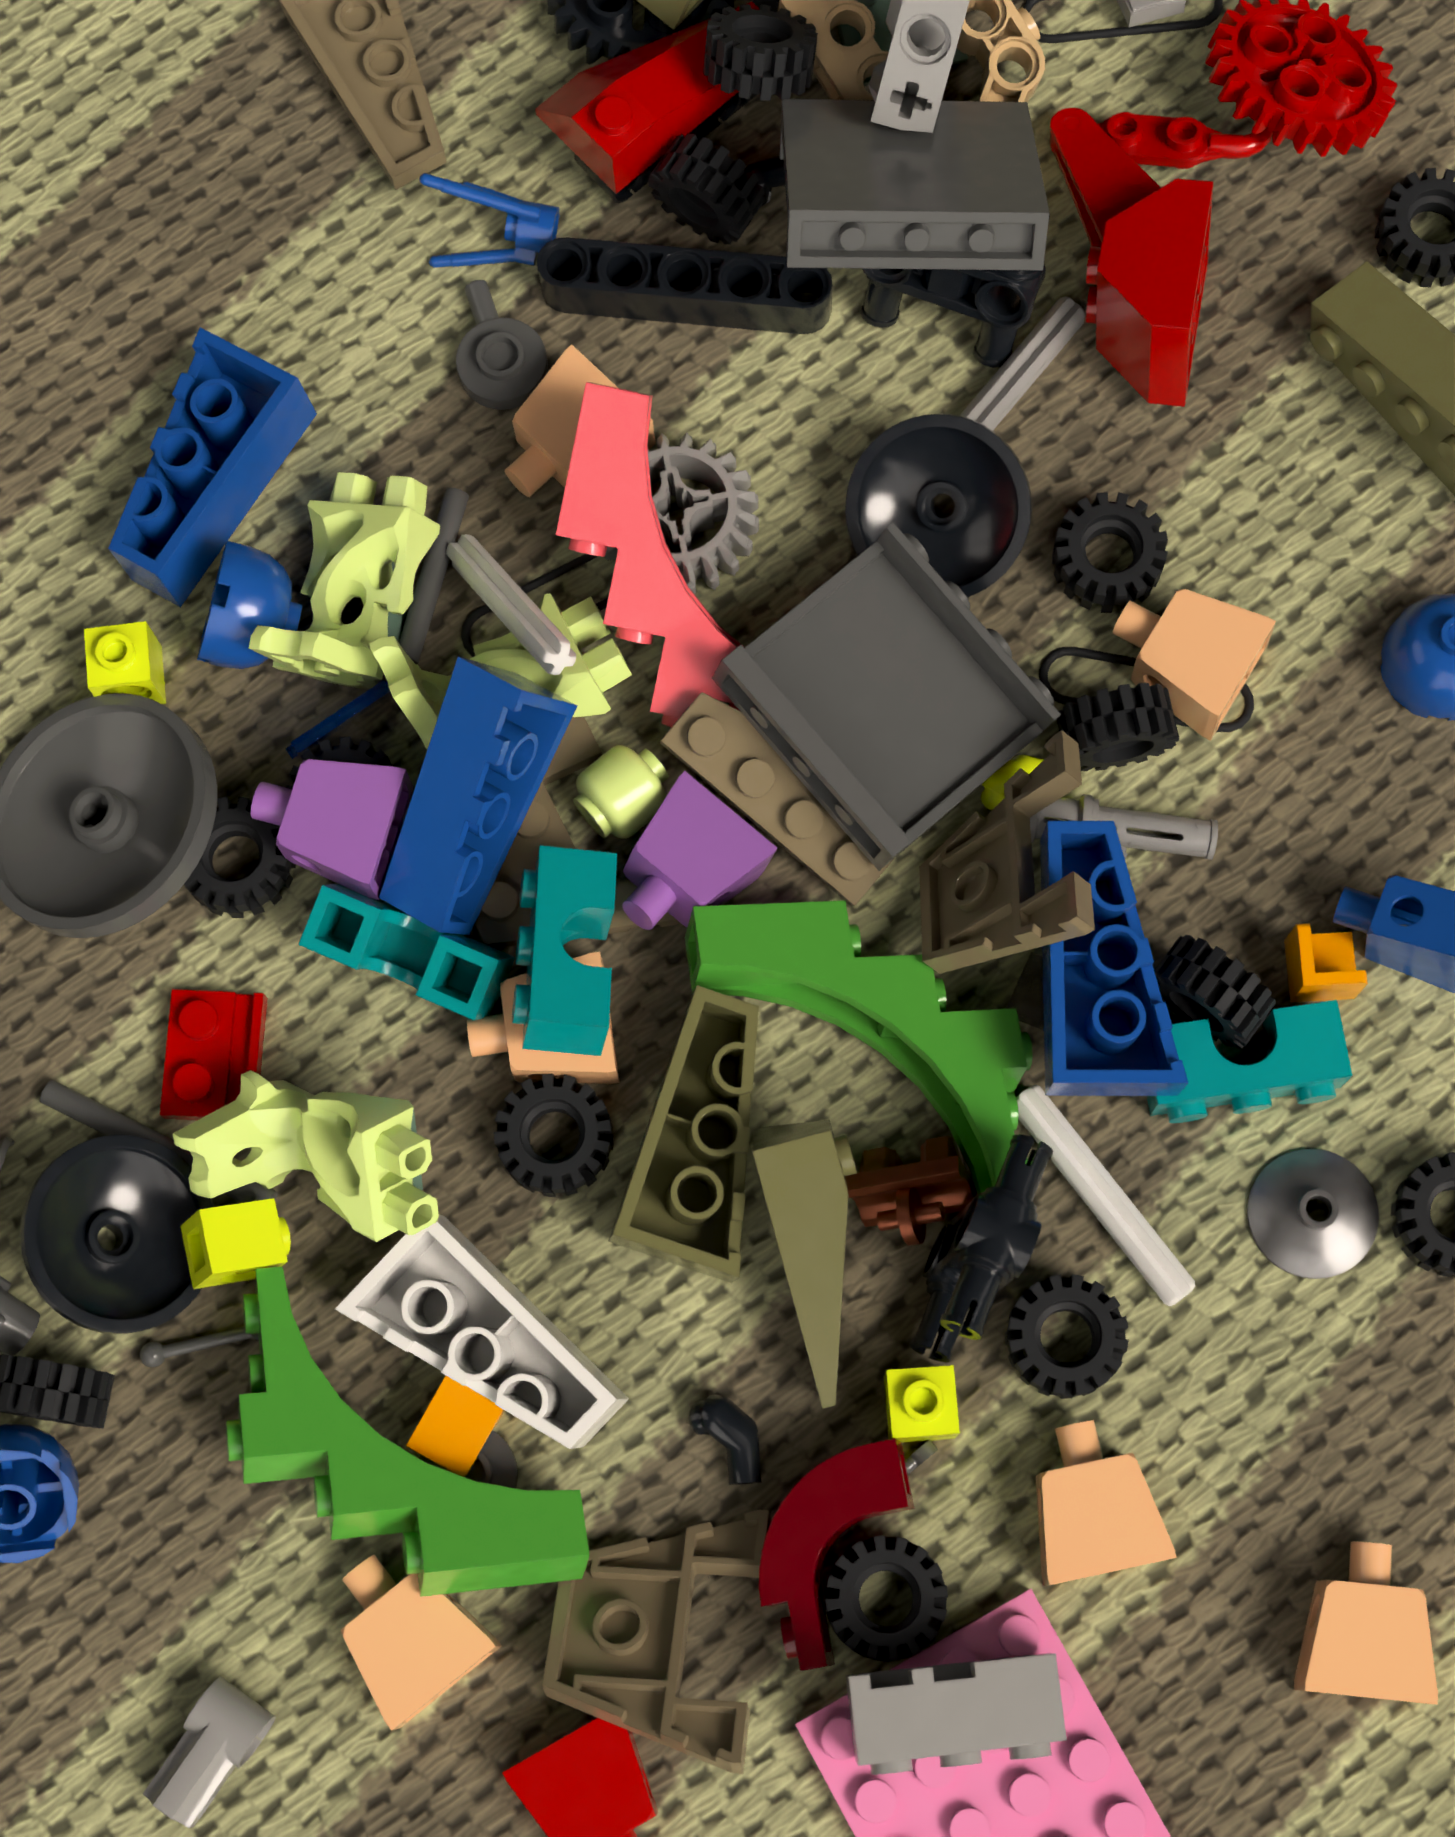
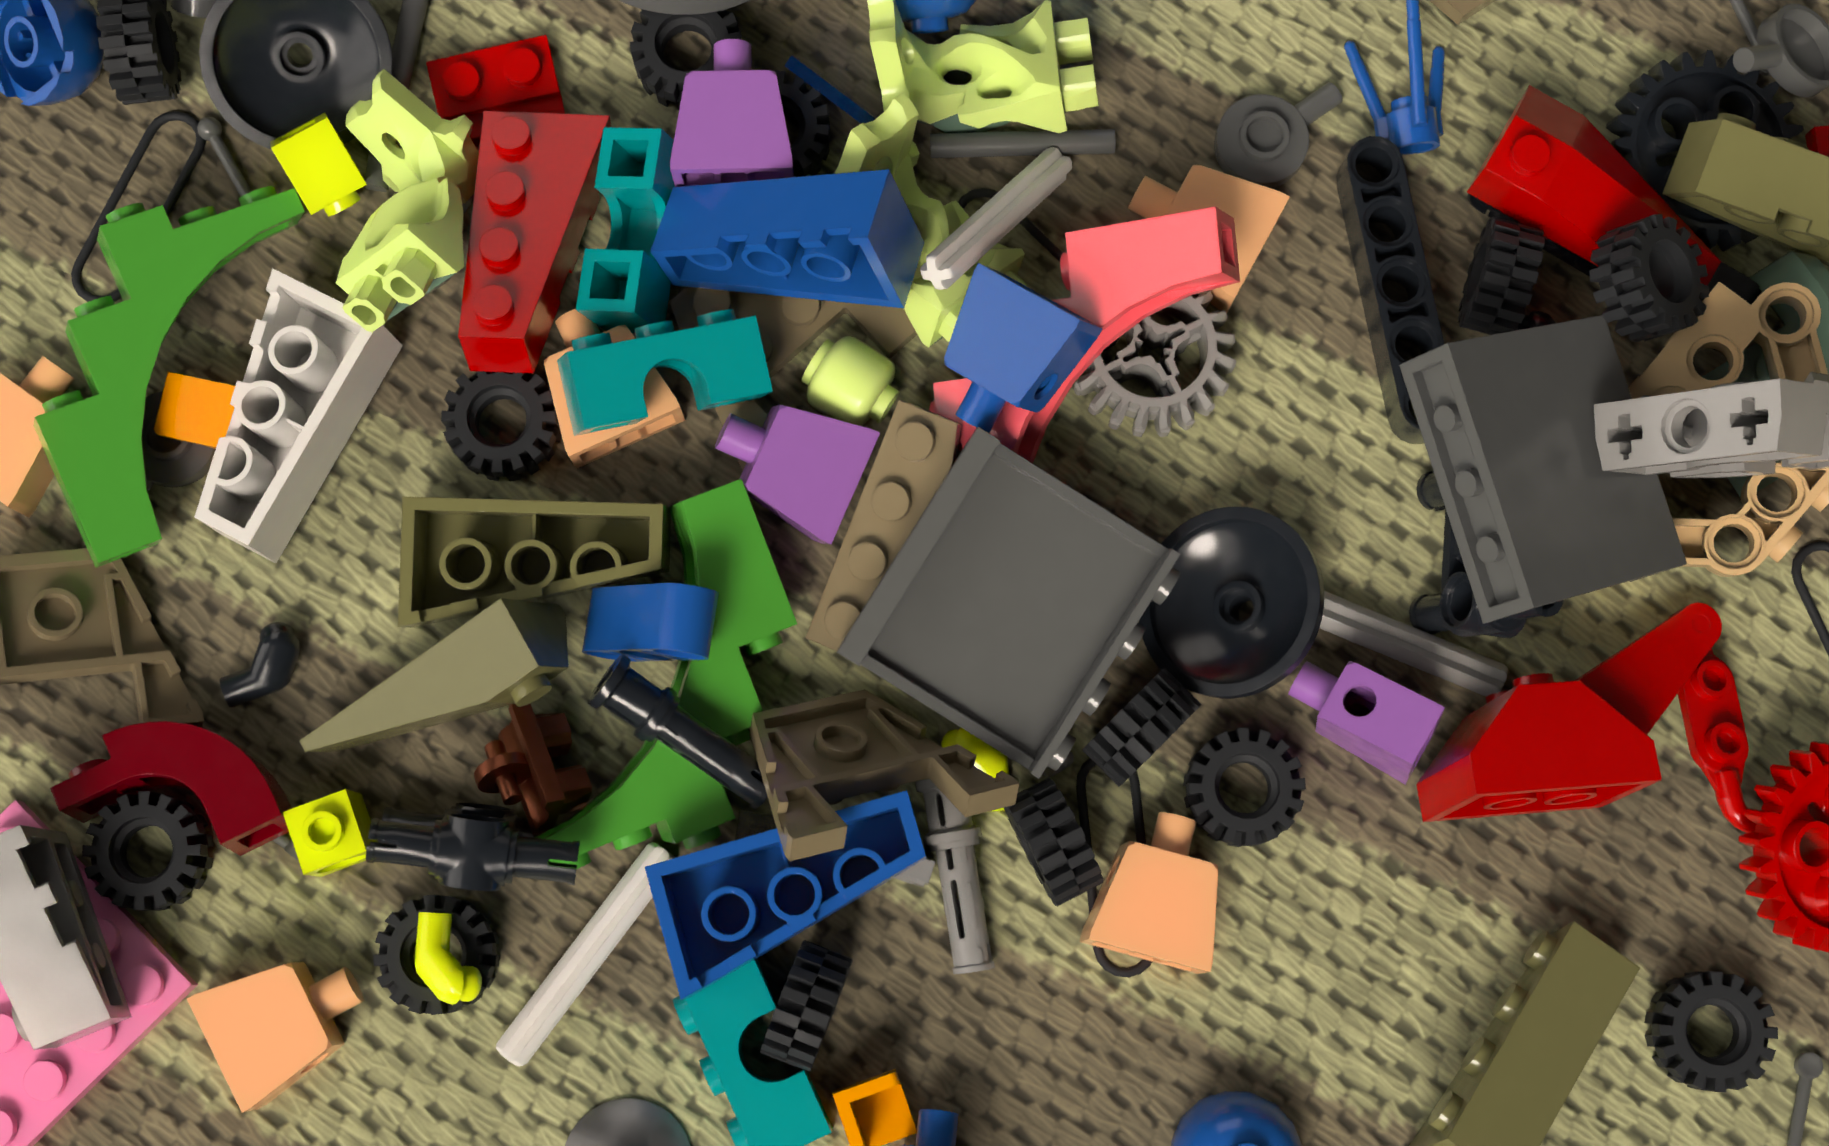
camera: 65 degrees right, 5 degrees up
(191, 1472) = (122, 184): none -> black piece
(345, 1037) = (525, 231): none -> red wedge
(650, 613) = (1012, 346): none -> torso
(807, 1031) = (651, 622): none -> blue beam
(906, 1040) = (659, 716): none -> black pin
(1033, 618) = (1141, 727): none -> black tyre
(1083, 1326) = (438, 966): none -> neon yellow arm
(1095, 400) = (1387, 737): none -> medium lavender torso

